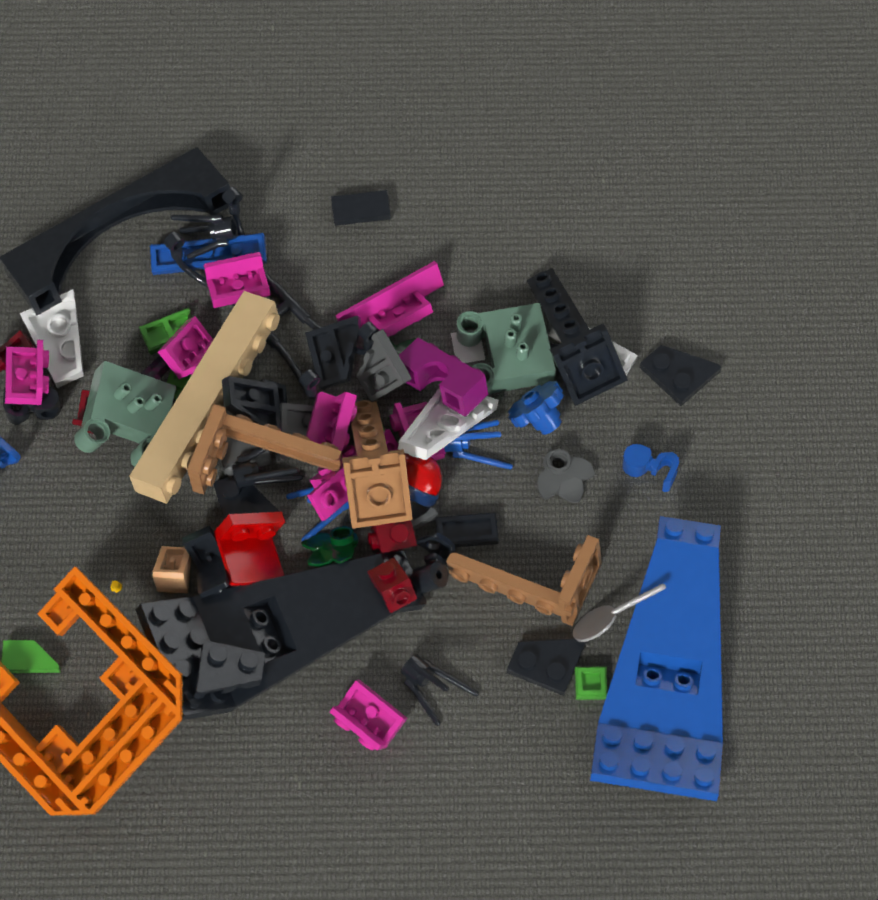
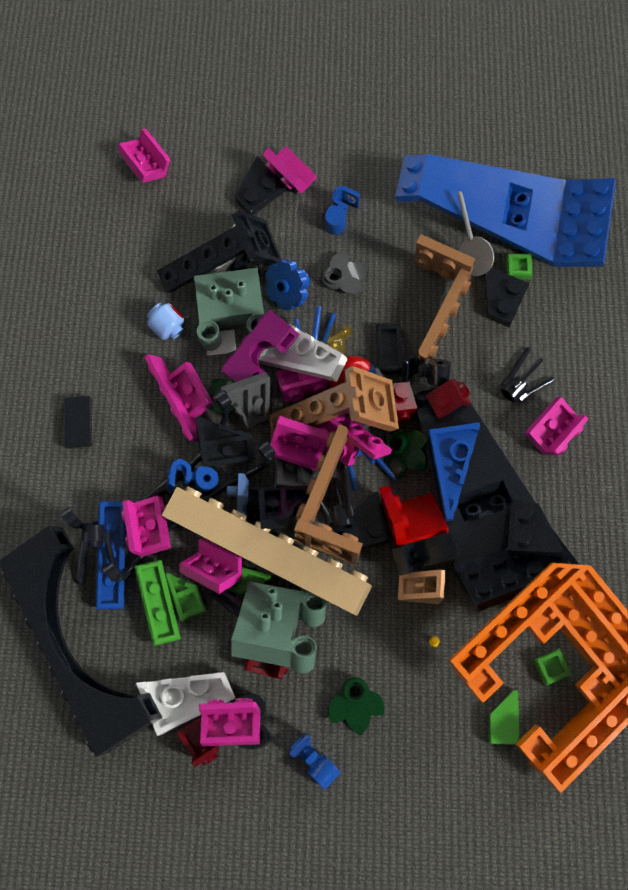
camera: 85 degrees left, 5 degrees up
(43, 506) = (356, 709): none -> dark green plate
(84, 710) = (552, 667): none -> bright green tile
(156, 303) = (157, 603): none -> bright green tile
(276, 373) = (240, 492): none -> medium blue piece
(293, 334) = (203, 479): none -> blue leg
(319, 587) = (451, 456): none -> blue wing
(466, 468) = (338, 340): none -> clear yellow animal
(485, 282) = (165, 321): none -> light blue head
(701, 400) = (292, 169): none -> dark pink bracket
(703, 239) = (145, 157): none -> dark pink bracket

